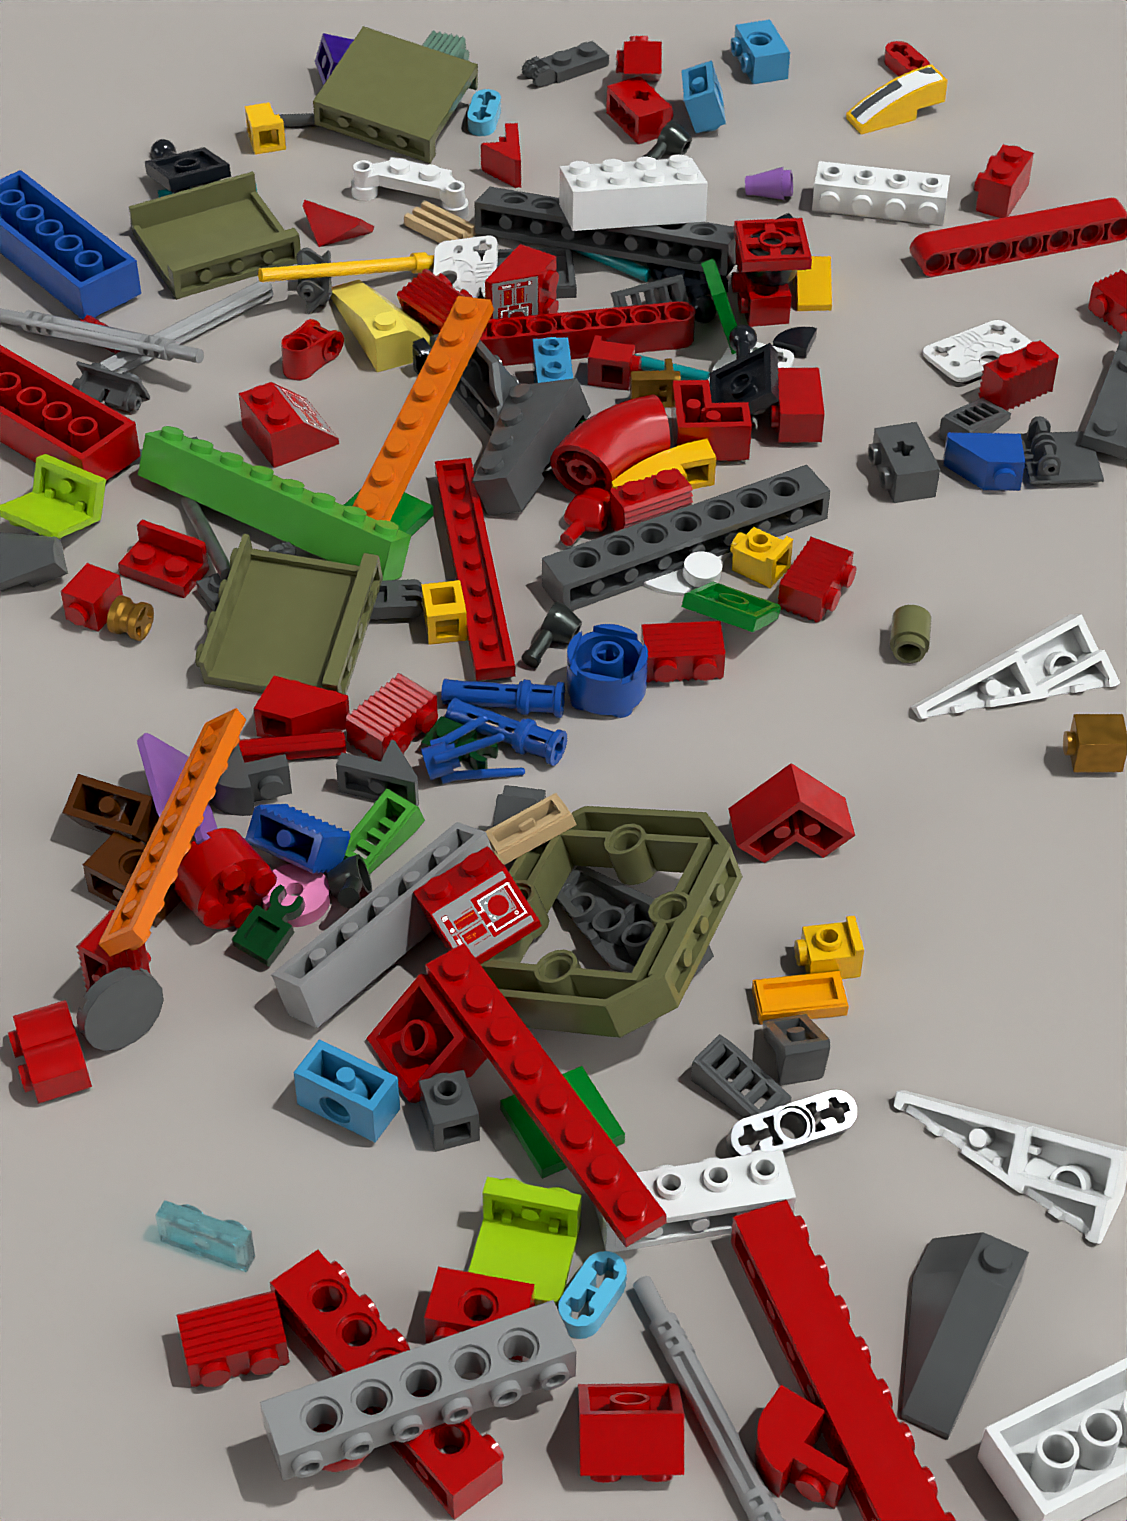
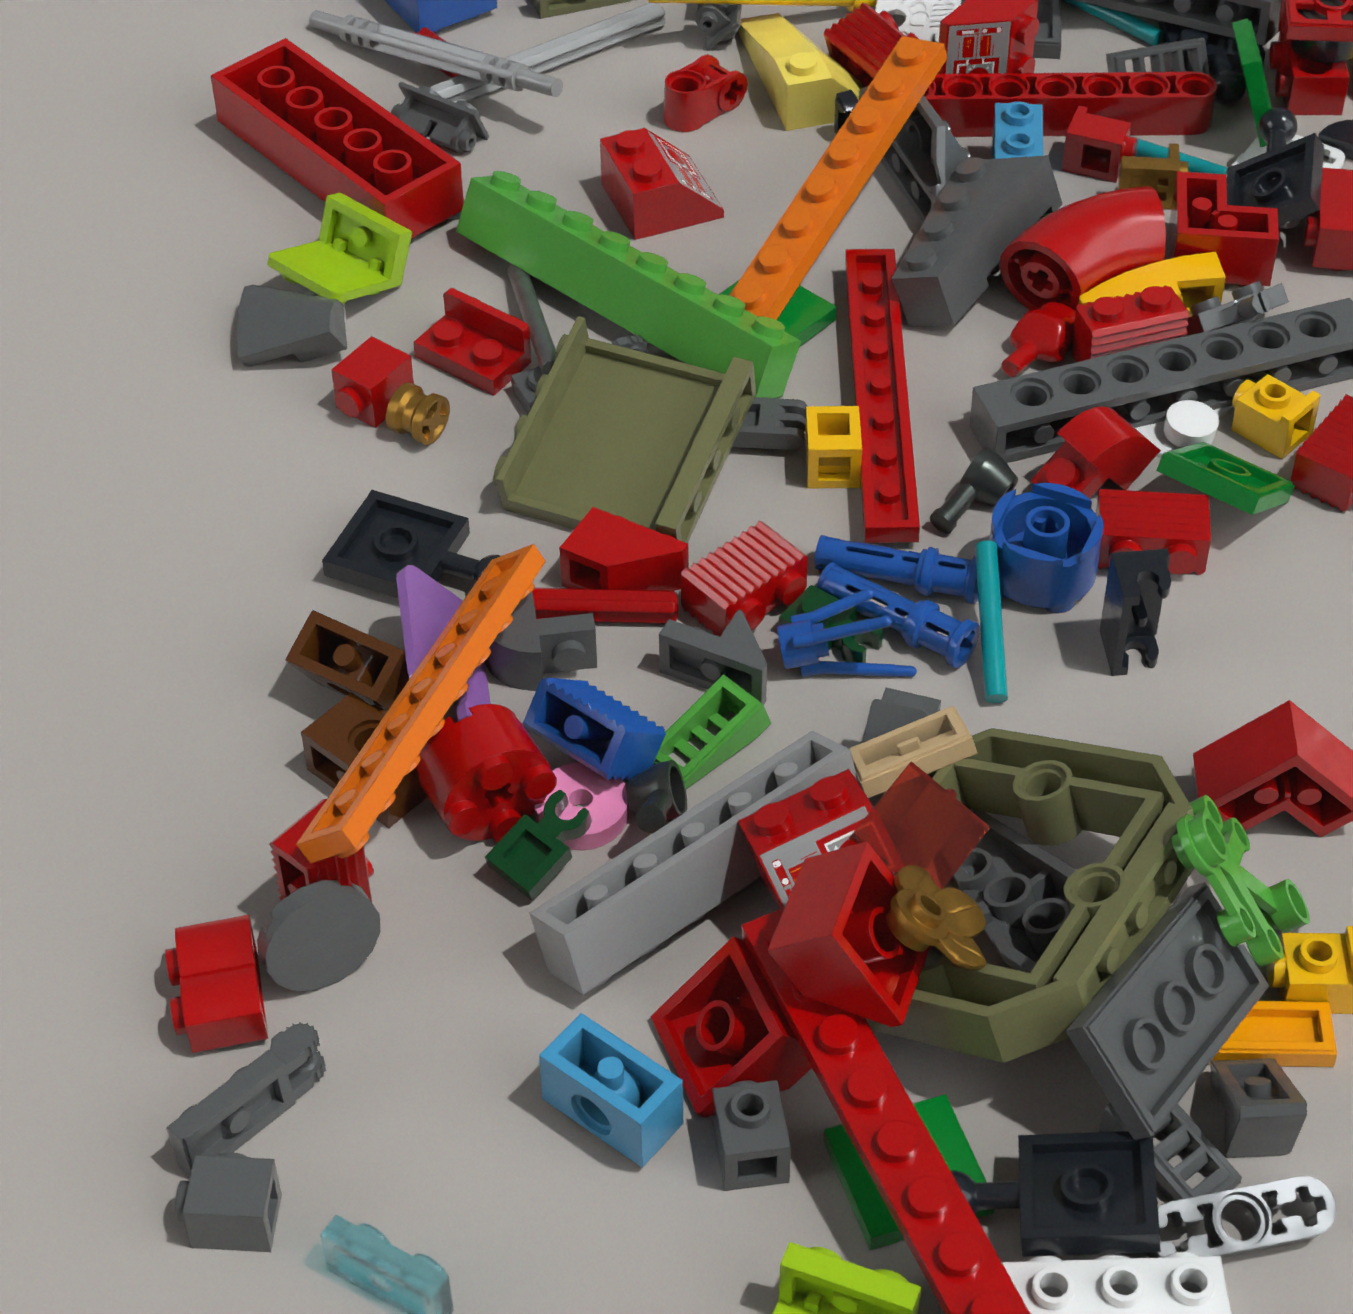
camera: 10 degrees right, 0 degrees up
(85, 1131) = (249, 1098): none -> dark grey hinge
(85, 1203) = (230, 1202): none -> dark grey brick
(128, 711) = (398, 533): none -> black plate
(505, 961) = (838, 938): none -> red slope
(543, 885) = (921, 827): none -> clear red piece
(562, 942) = (936, 917): none -> pearl gold plate
(575, 729) = (991, 622): none -> teal bar
(636, 594) = (1097, 448): none -> red brick
(675, 707) = (1133, 606): none -> black hinge
(681, 1120) = (1078, 1194): none -> black plate
(729, 988) = (1167, 1012): none -> dark grey tile
(734, 475) = (1247, 304): none -> dark grey plate
(779, 912) = (1251, 907): none -> bright green plant

